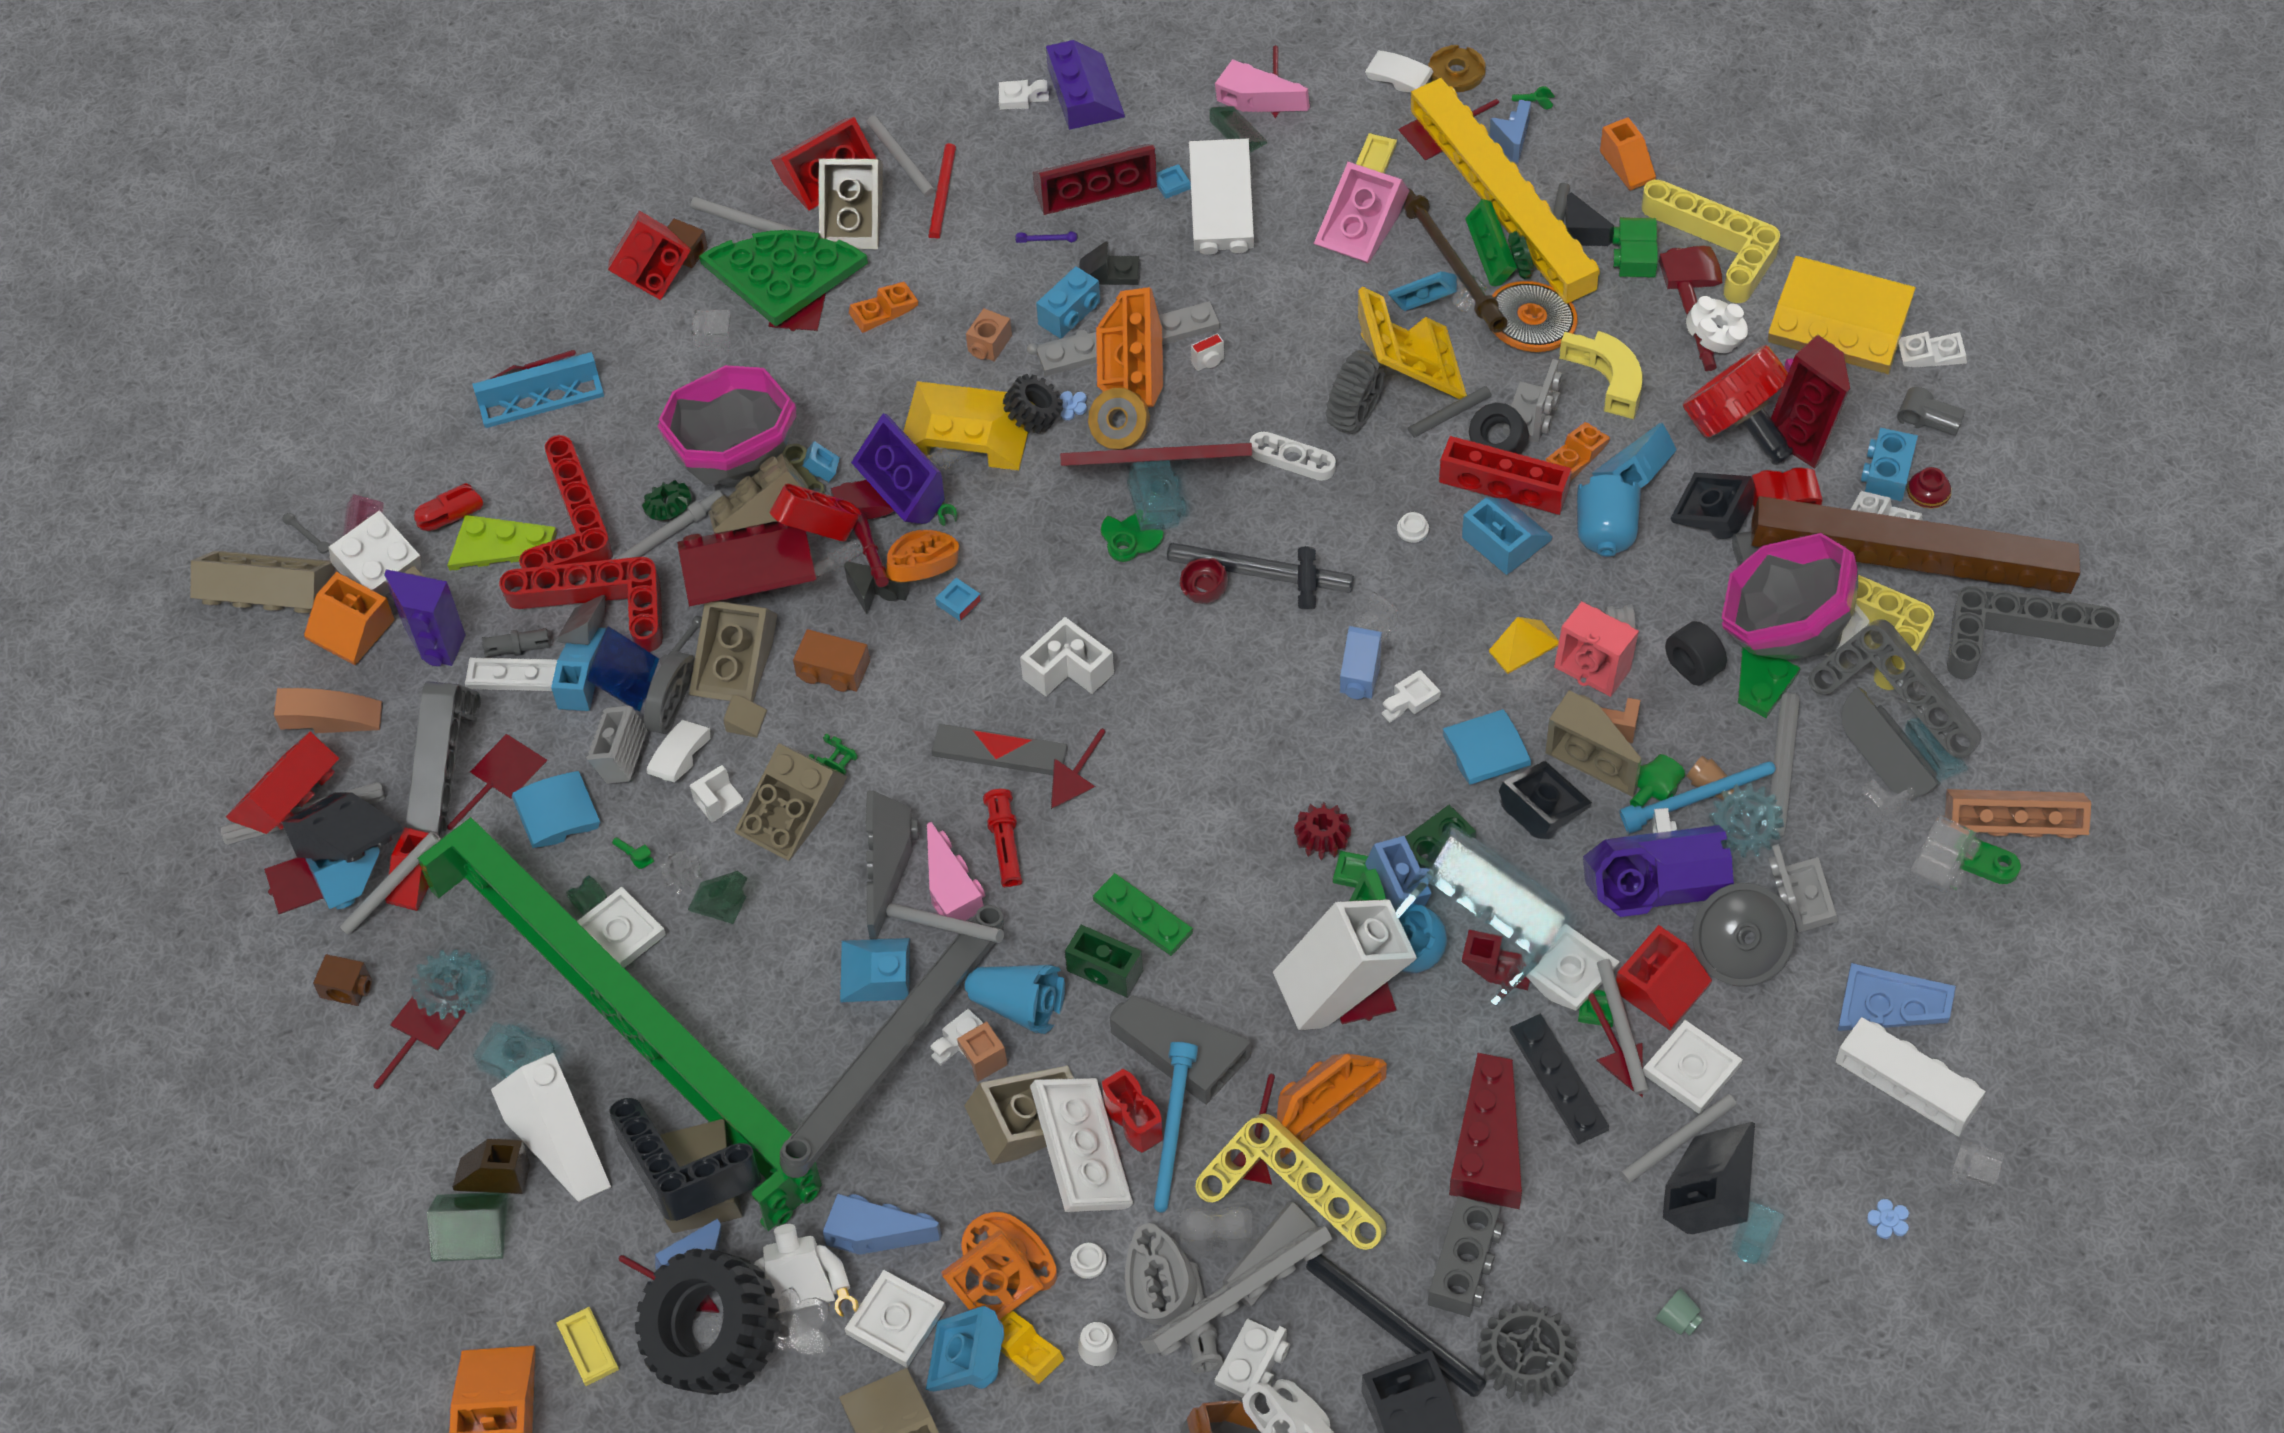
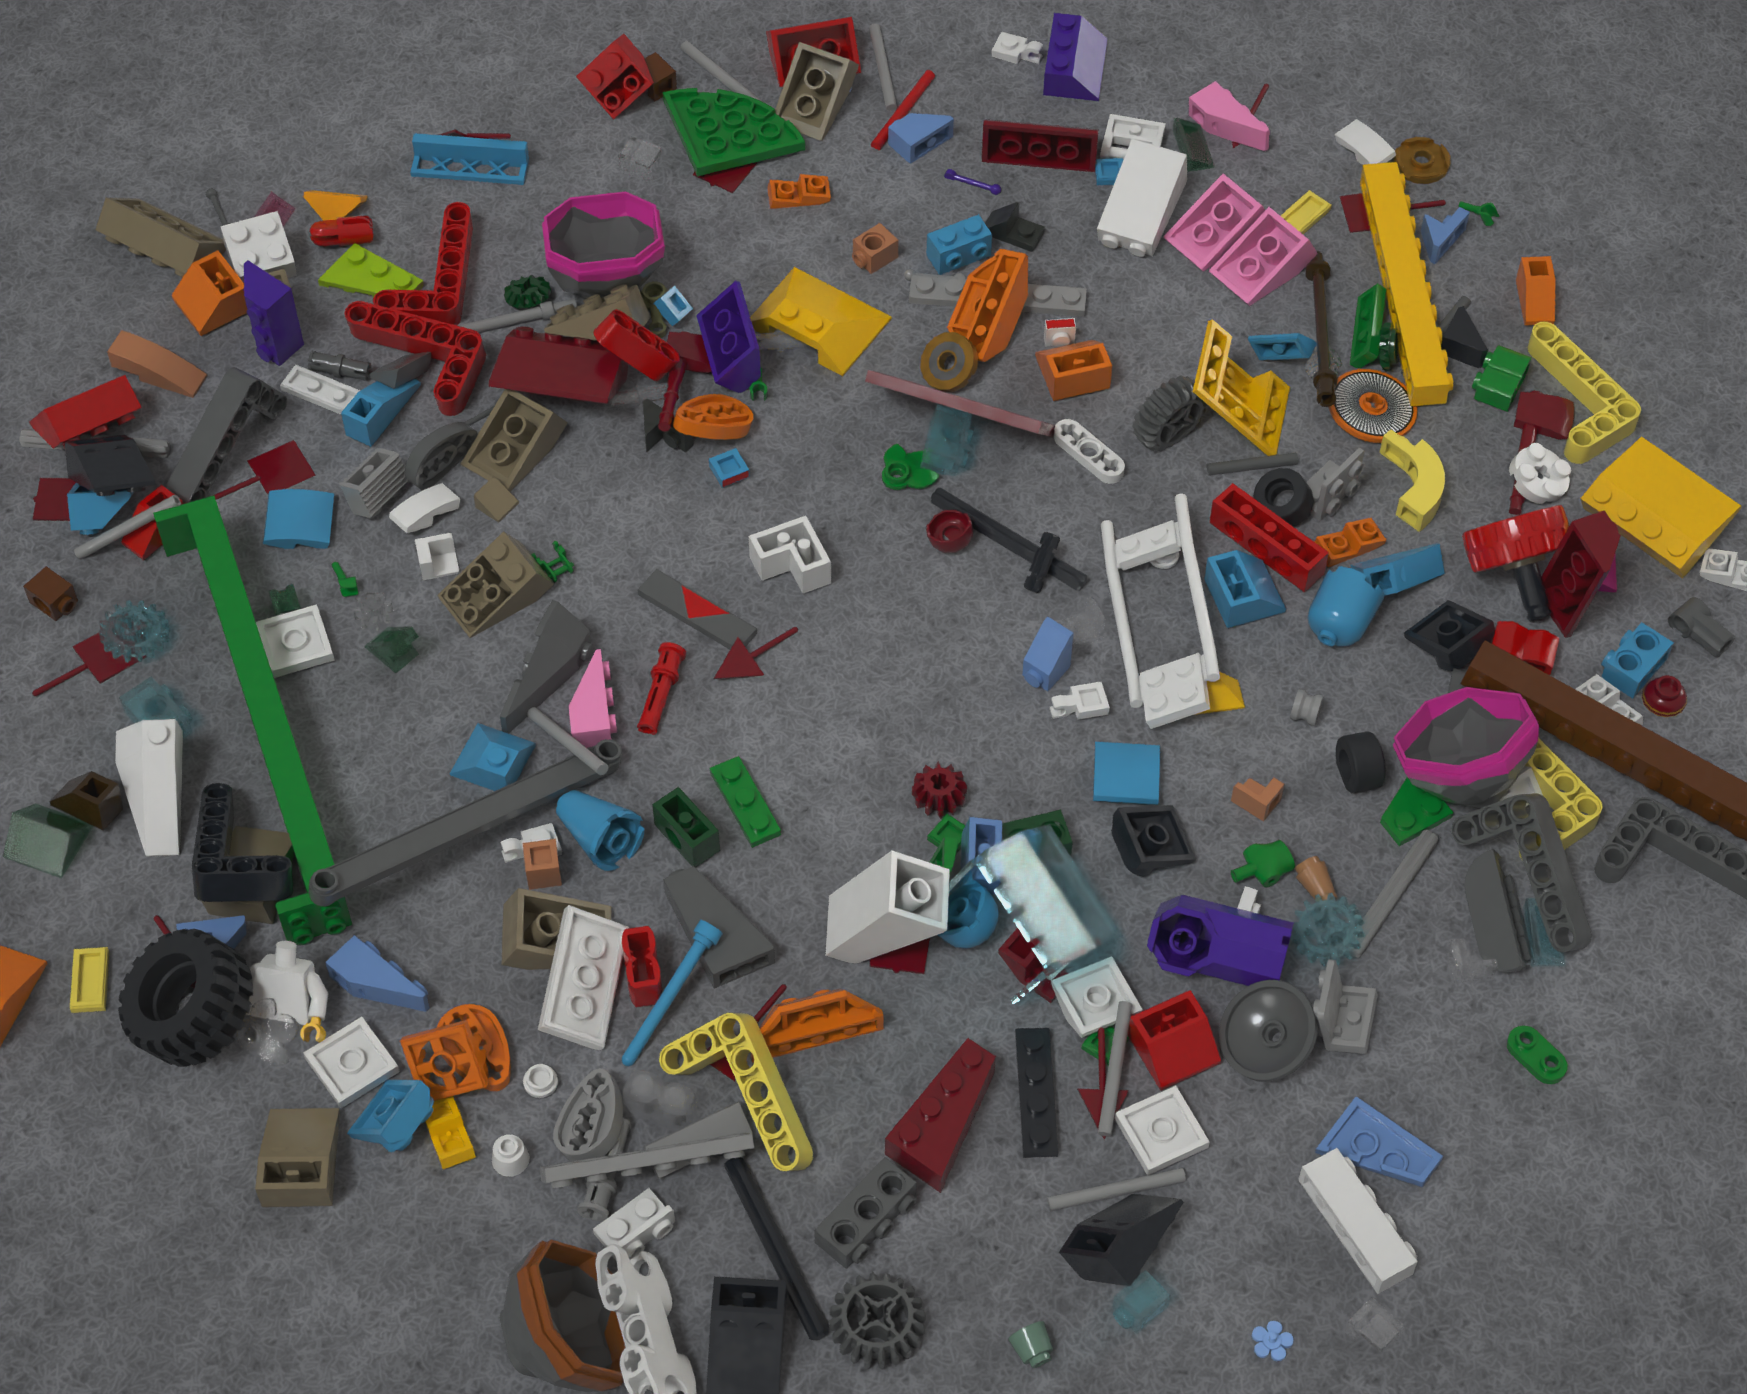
camera: 20 degrees right, 0 degrees up
(422, 485) = (333, 204): none -> light orange slope
(623, 669) = (411, 417): clear blue hinge -> none
(831, 661) = (592, 480): dark orange brick -> none
(972, 209) = (919, 134): none -> medium blue slope
(1019, 404) = (871, 329): black tyre -> none
(1073, 404) = (917, 335): light blue plant -> none
(1175, 137) = (1123, 129): none -> white plate
(1240, 381) = (1075, 369): none -> orange slope
(1300, 195) = (1214, 223): none -> bright pink slope
(1494, 648) = (1181, 685): none -> white plate
(1591, 743) = (1215, 801): dark tan slope -> none
(1596, 648) = (1267, 722): coral brick -> none
(1636, 817) = (1228, 888): dark azure piece -> none
(1944, 855) = (1495, 1033): clear brick -> none
(2020, 812) = (1586, 1022): nougat brick -> none

